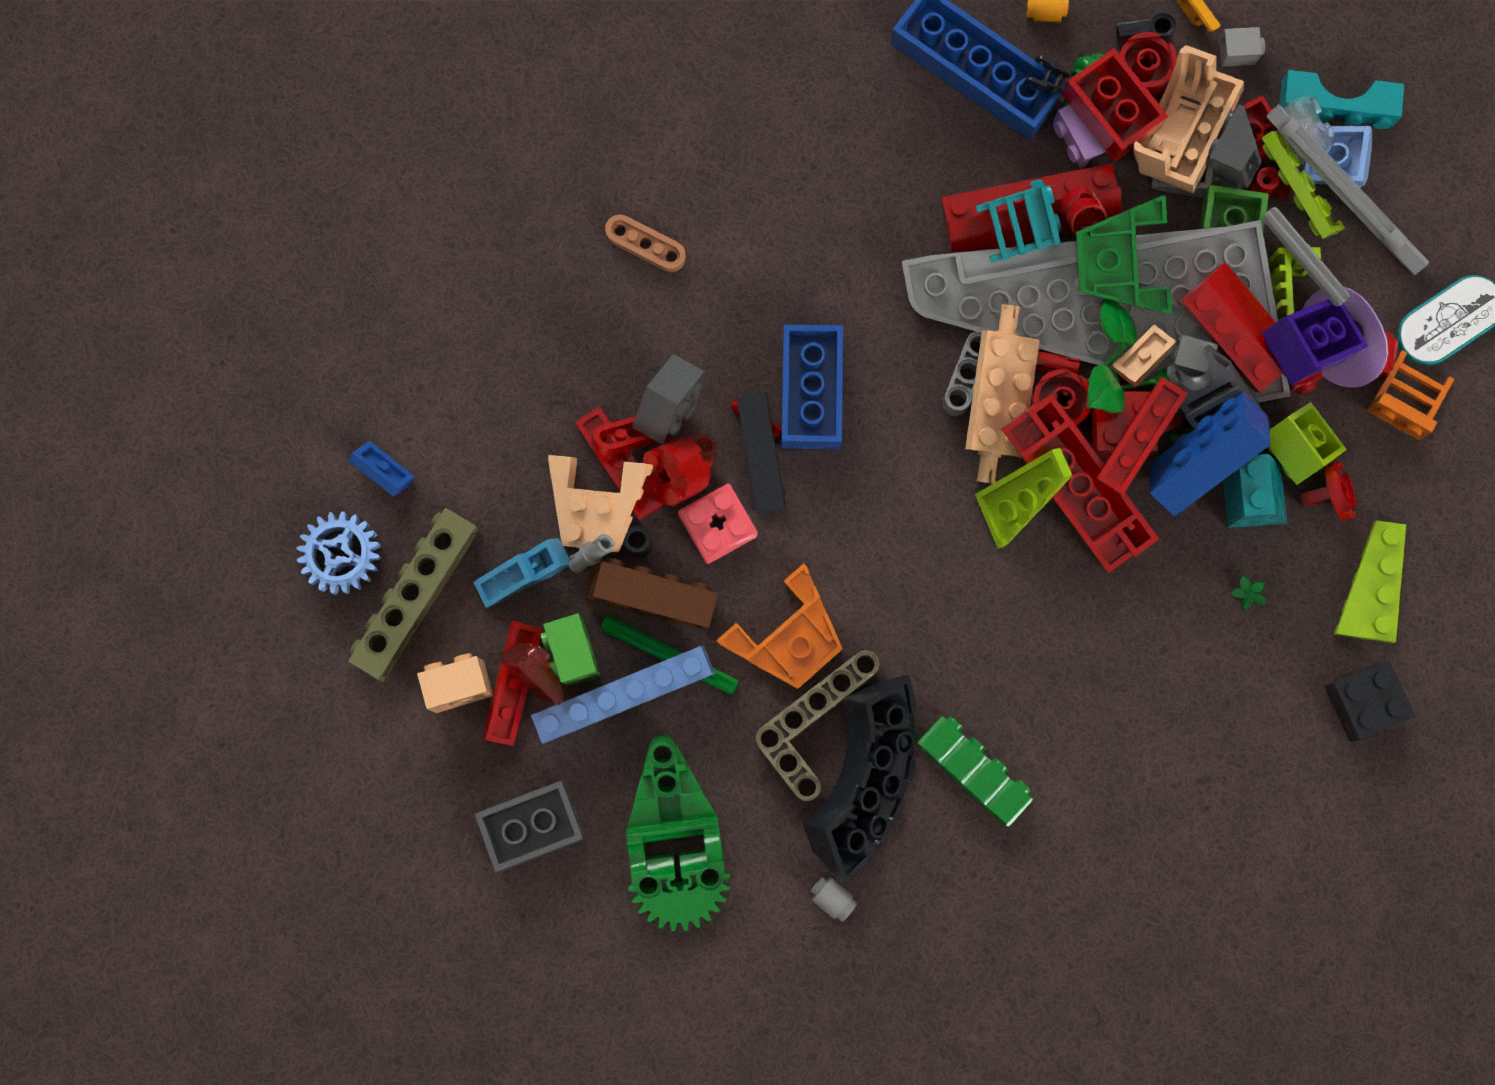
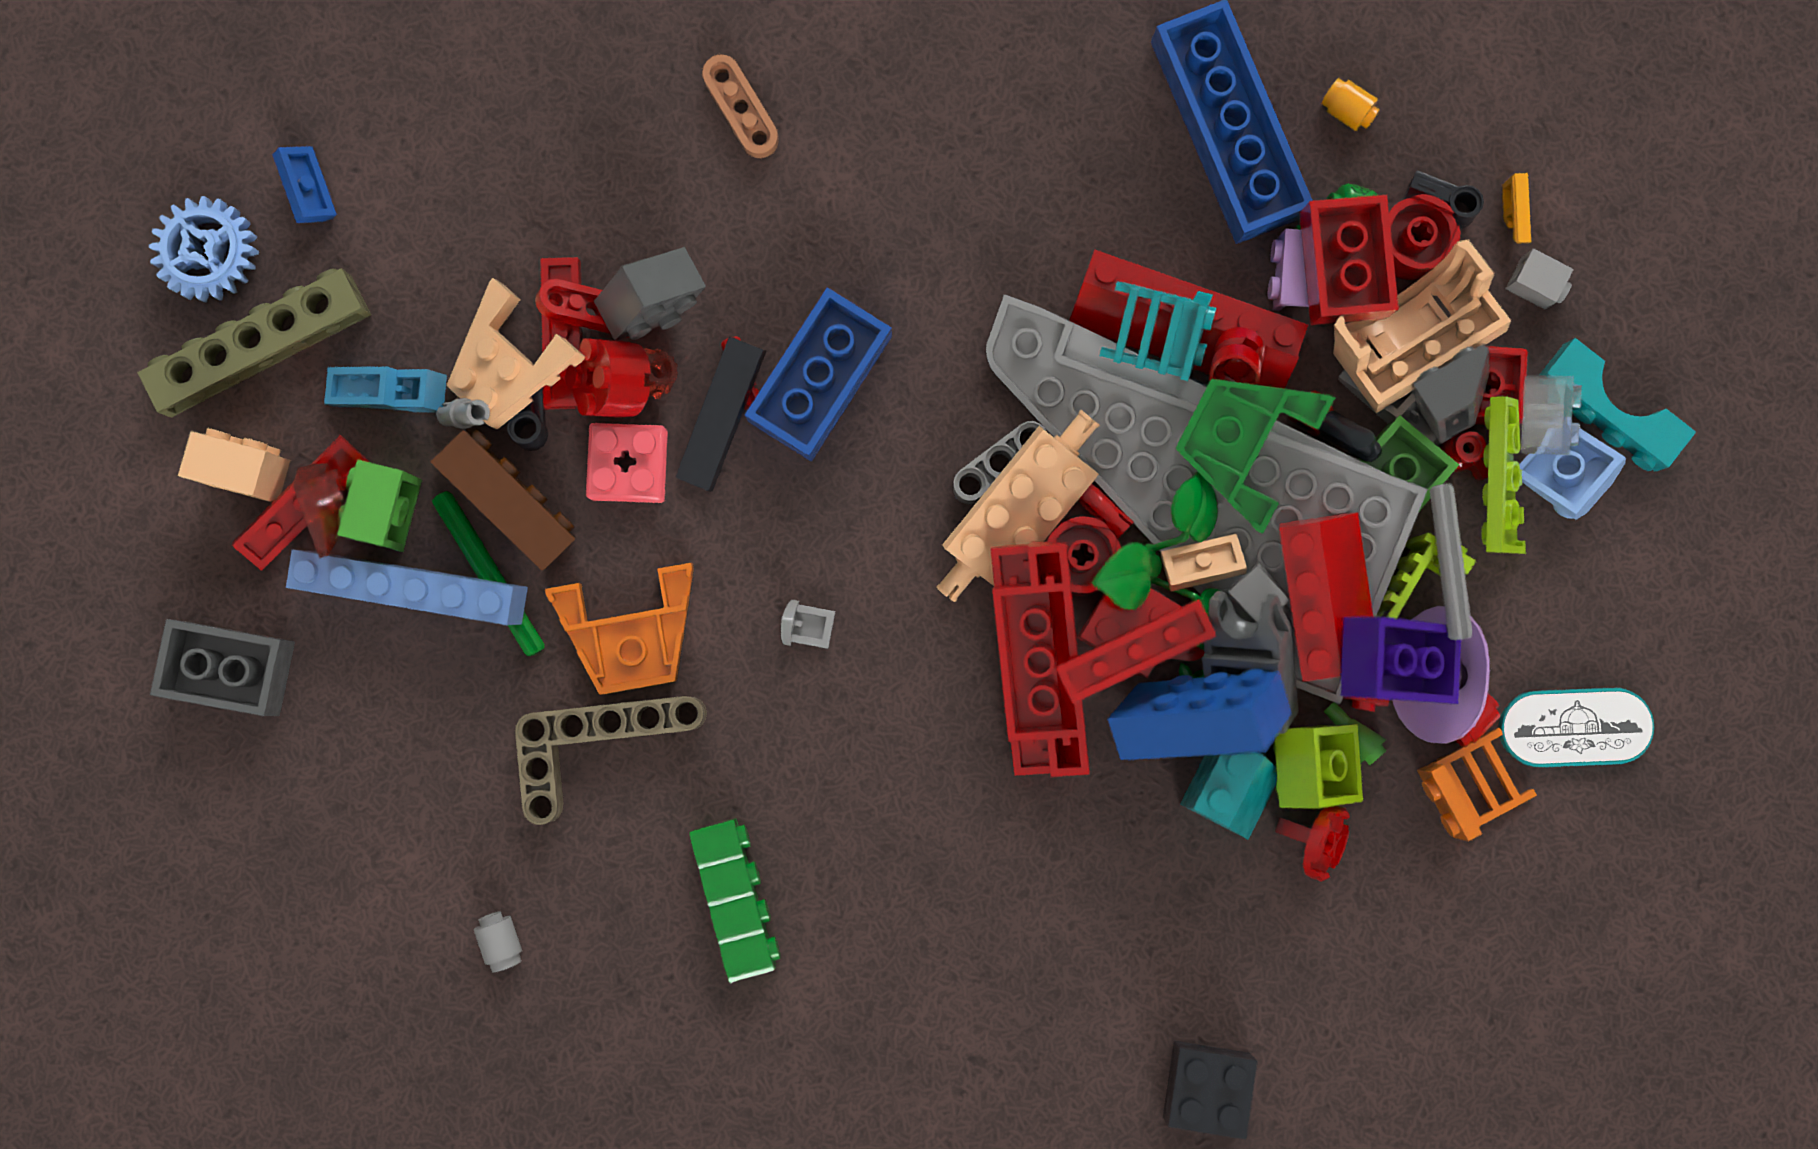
camera: 30 degrees right, 5 degrees up
(673, 813) = (379, 744): green connector -> none
(871, 778) = (617, 840): black brick -> none
(906, 559) = (806, 625): none -> light grey tile
(1022, 494) = (968, 634): lime wing -> none
(1052, 69) = (1284, 190): black piece -> none
(1182, 218) = (1347, 435): none -> black piece
(1249, 592) = (1156, 890): green plant -> none
(1325, 408) = (1369, 741): none -> bright green cone
(1347, 190) = (1551, 513): light grey piece -> none
(1375, 590) = (1297, 972): lime wing -> none

